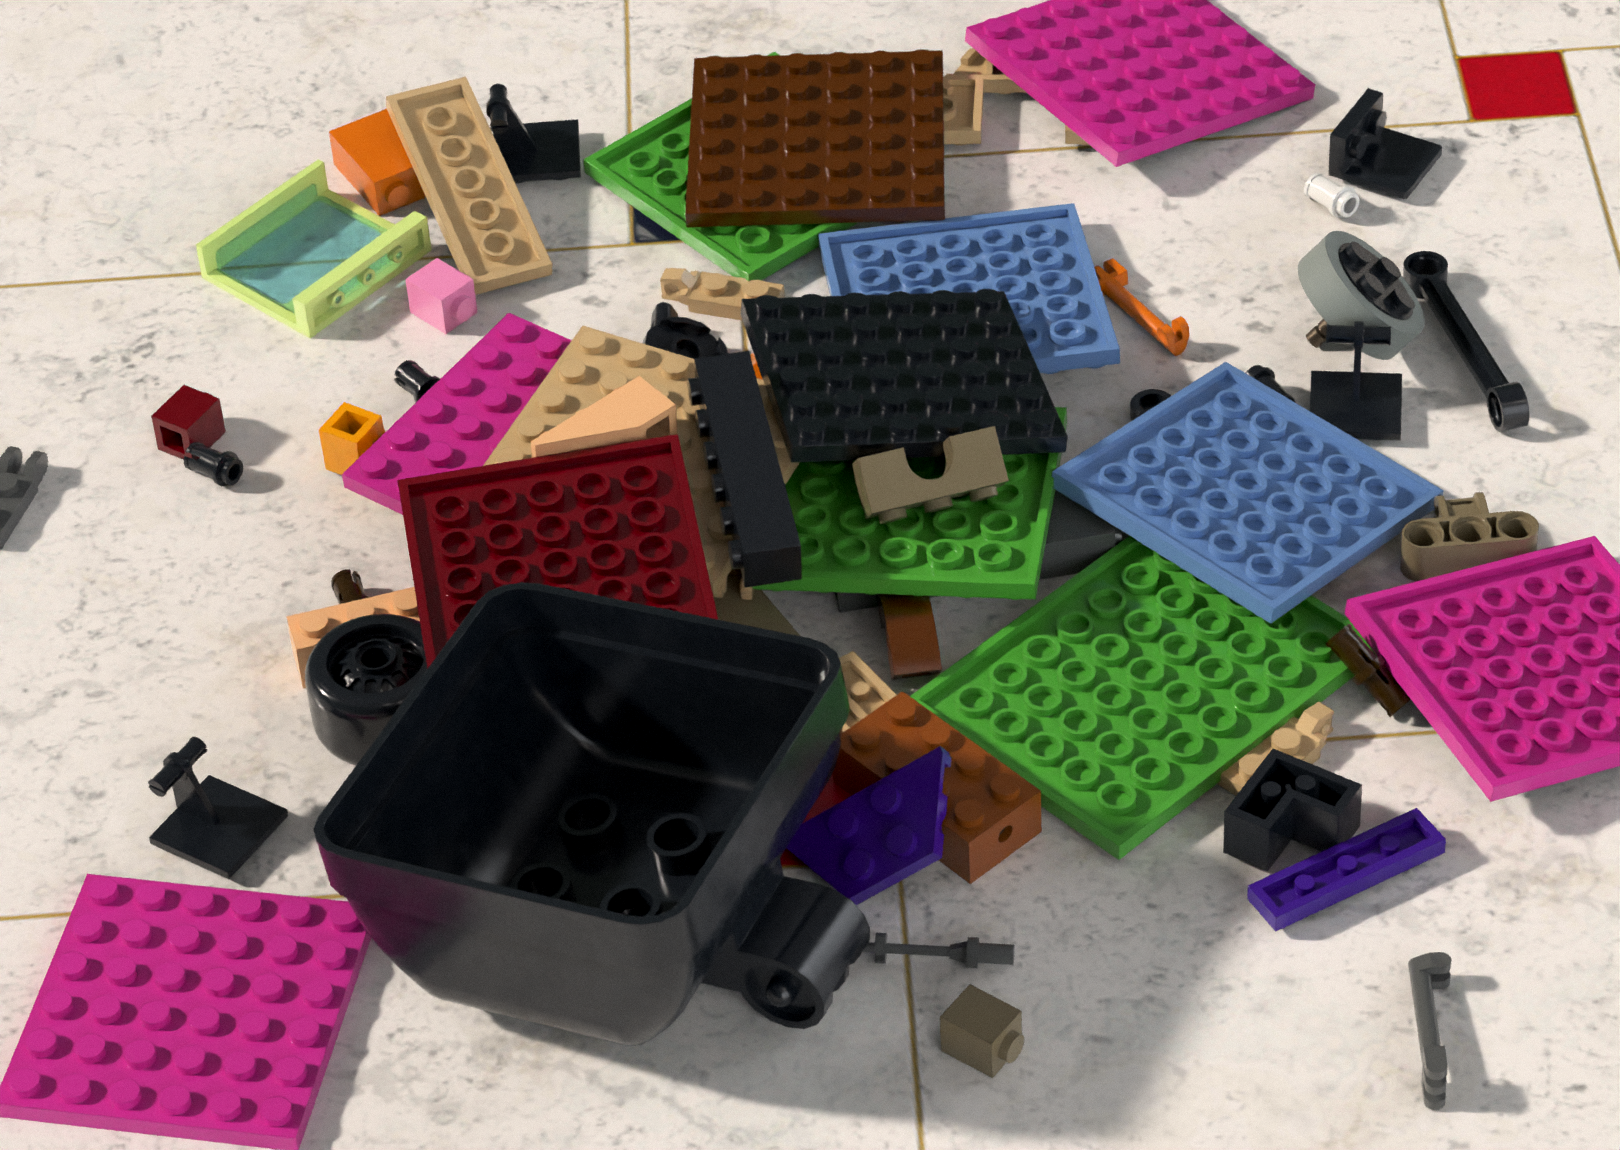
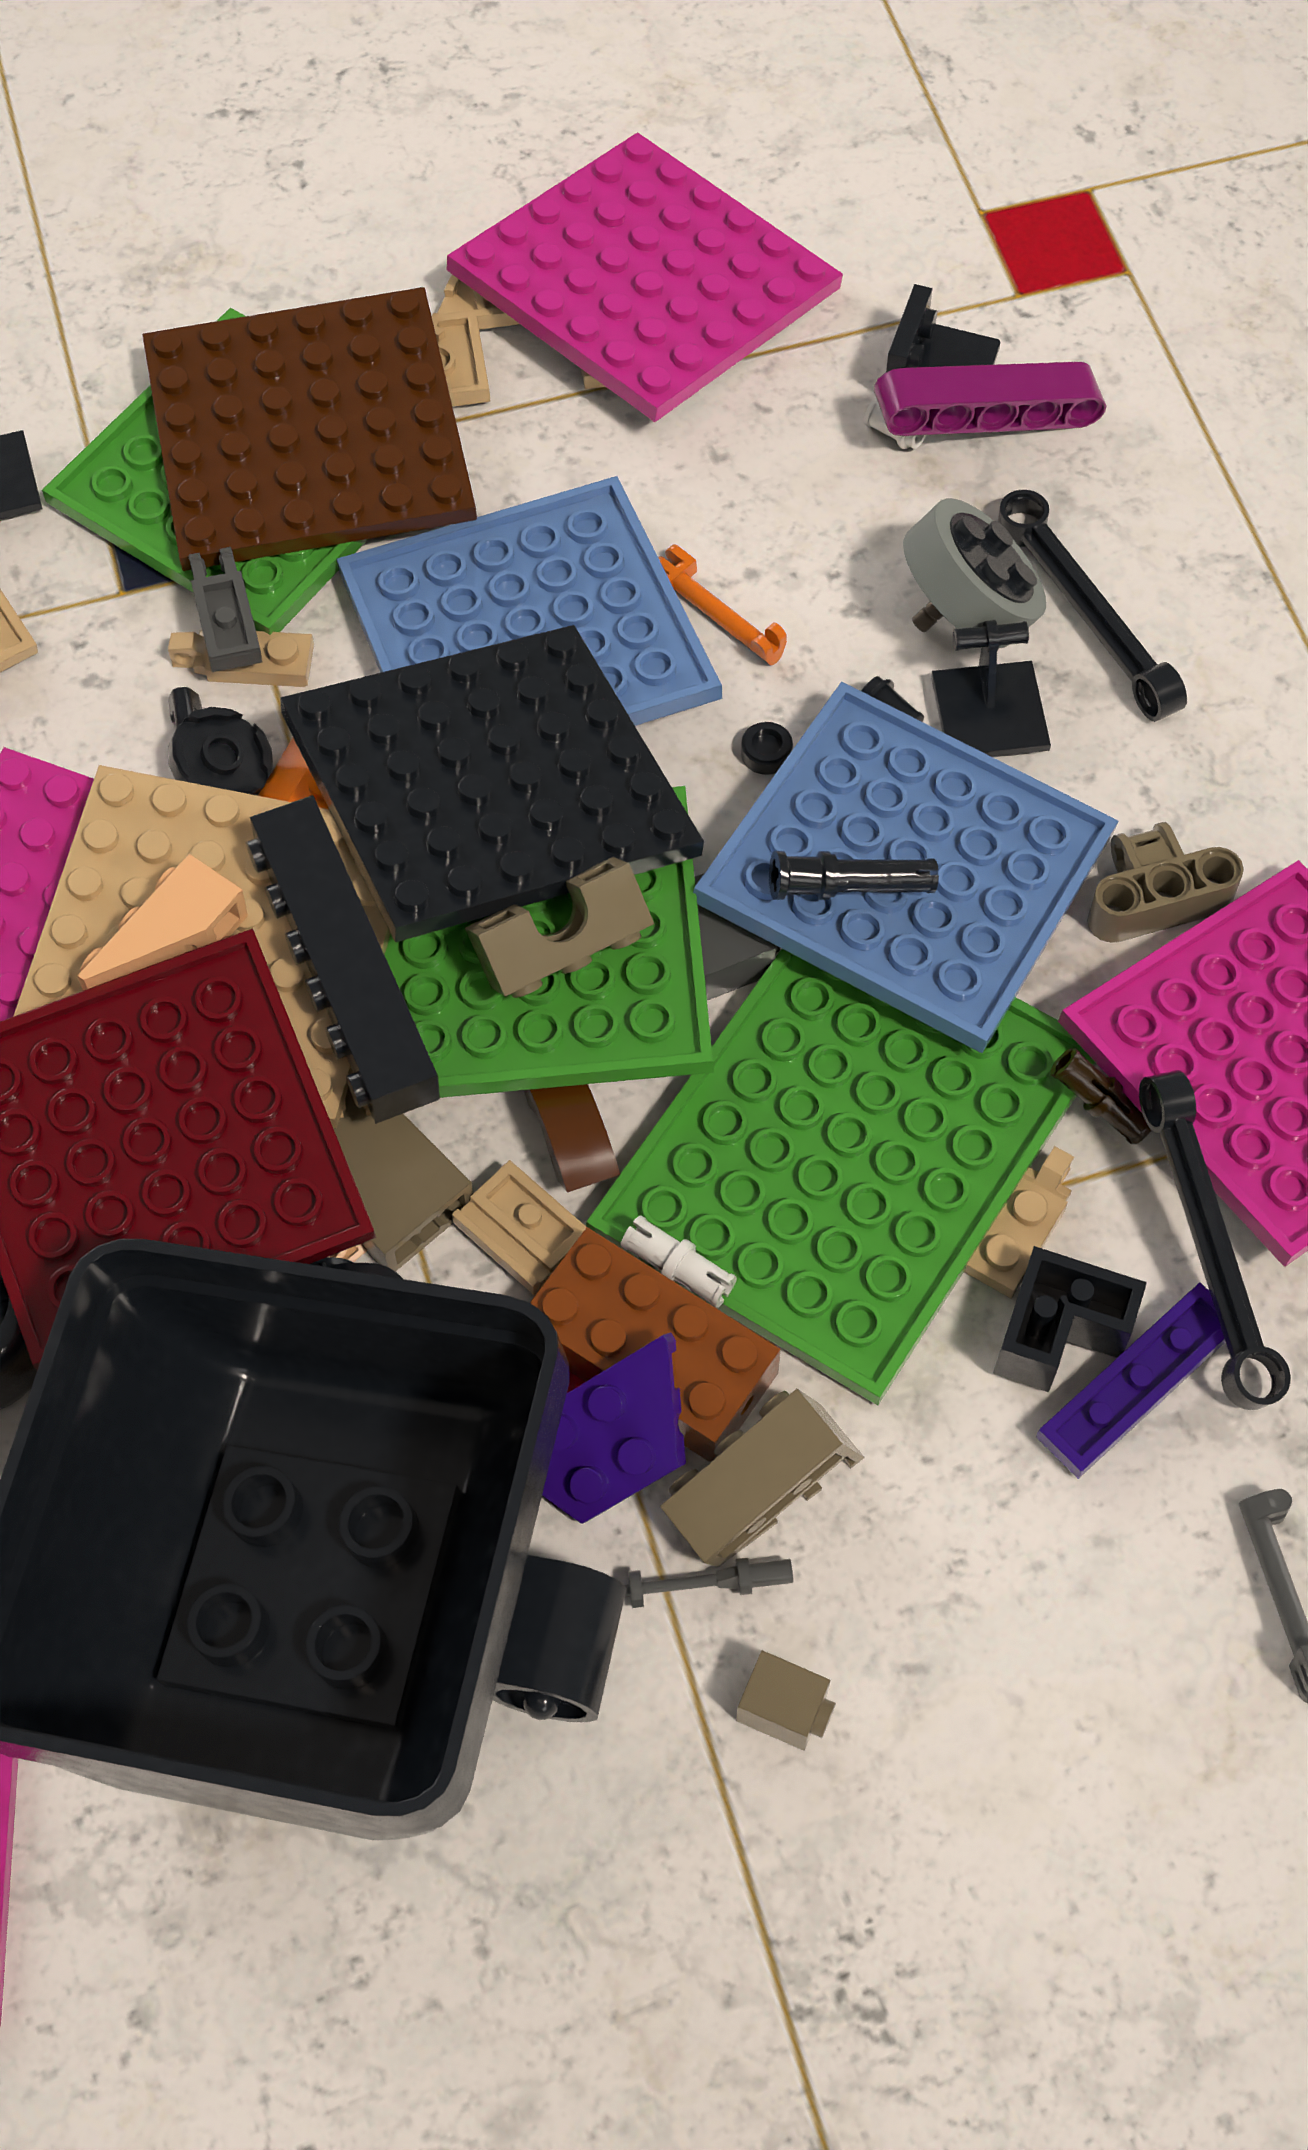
camera: 15 degrees left, 20 degrees up
(713, 255) = (224, 614): none -> dark grey hinge
(975, 726) = (678, 1261): none -> white pin
(1005, 877) = (757, 1476): none -> dark tan wedge
(1167, 474) = (828, 875): none -> black pin
(1414, 673) = (1171, 1110): none -> black piece
(1416, 181) = (989, 398): none -> magenta beam

